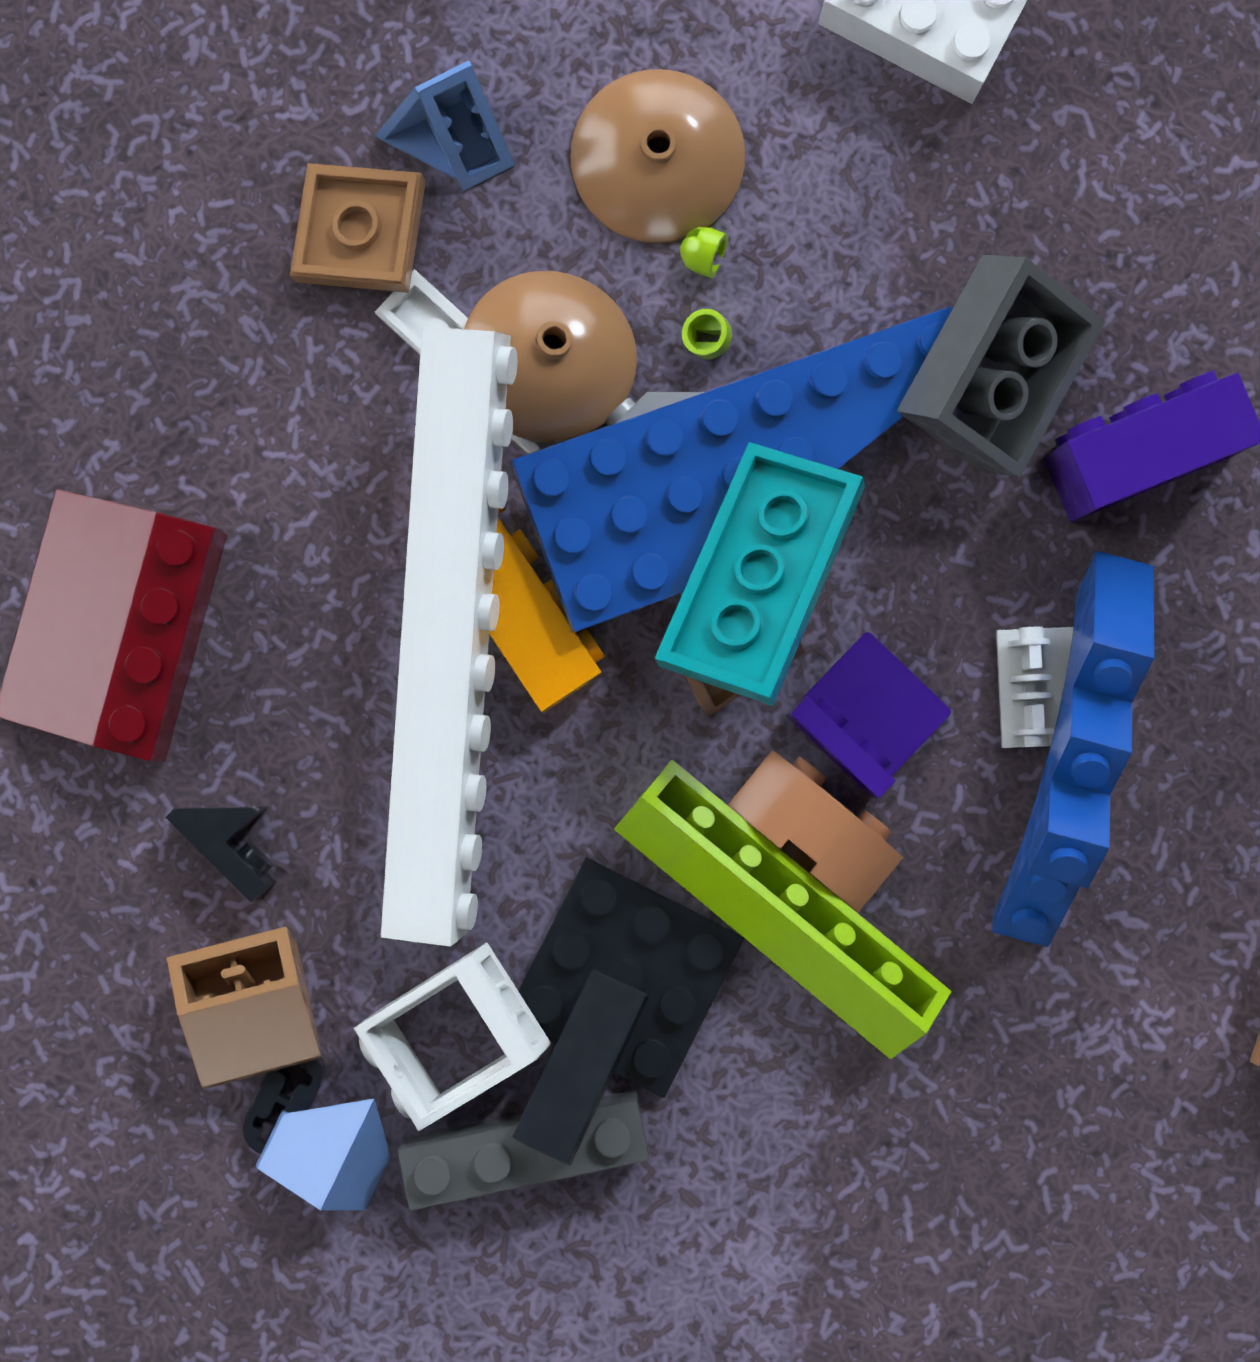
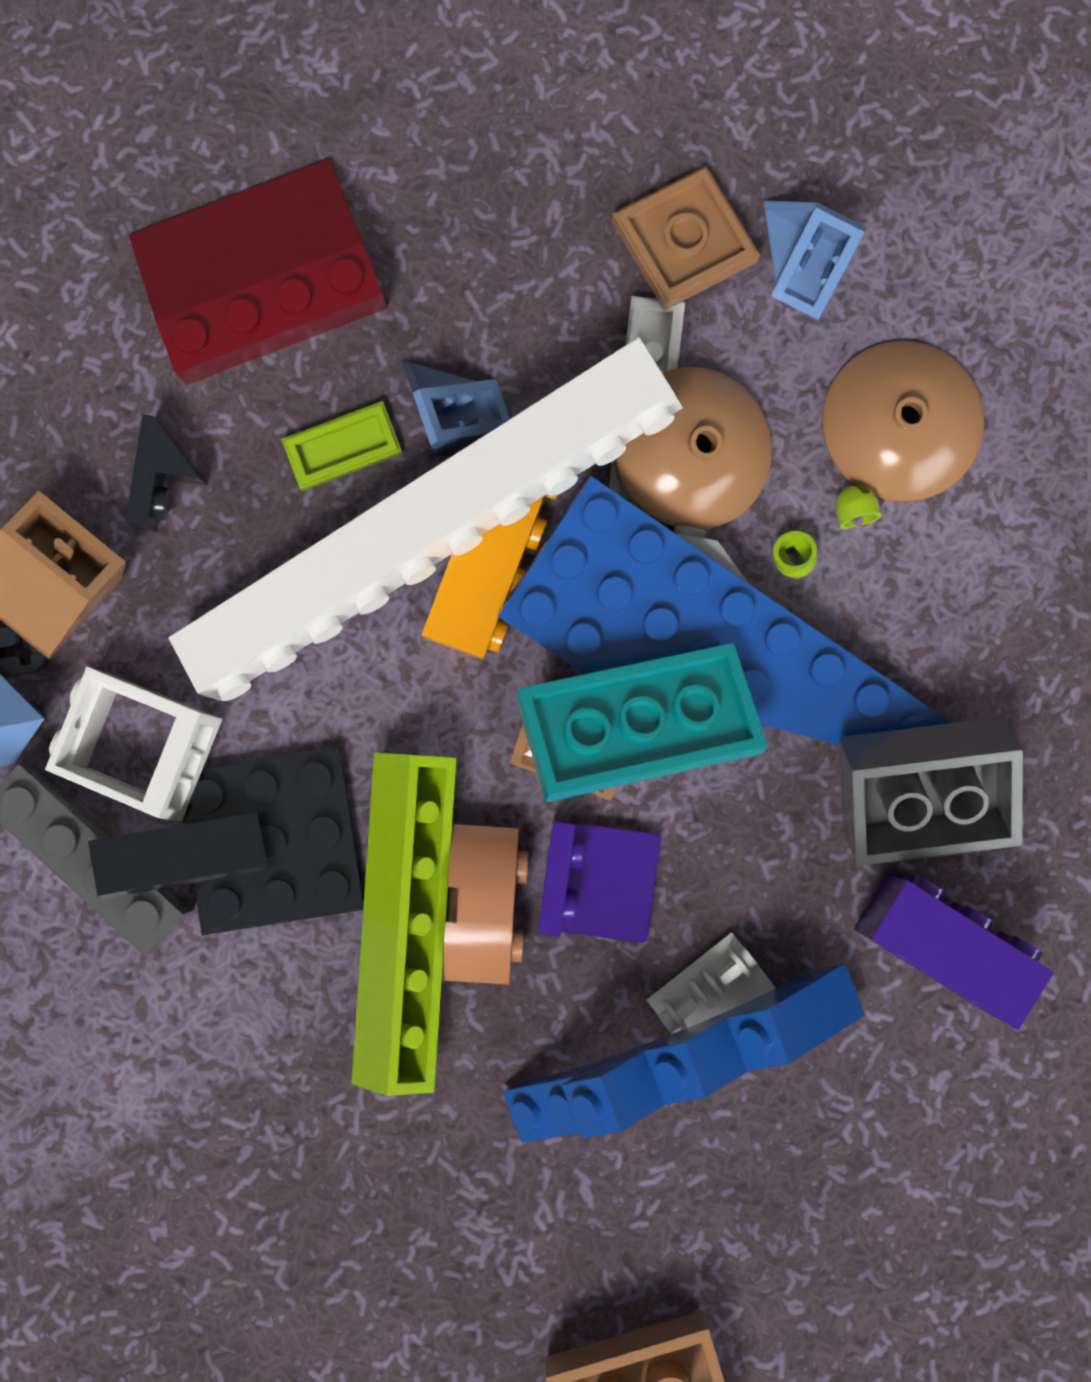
camera: 55 degrees right, 0 degrees up
(320, 662) = (341, 446): none -> lime tile
(360, 538) = (454, 407): none -> medium blue slope

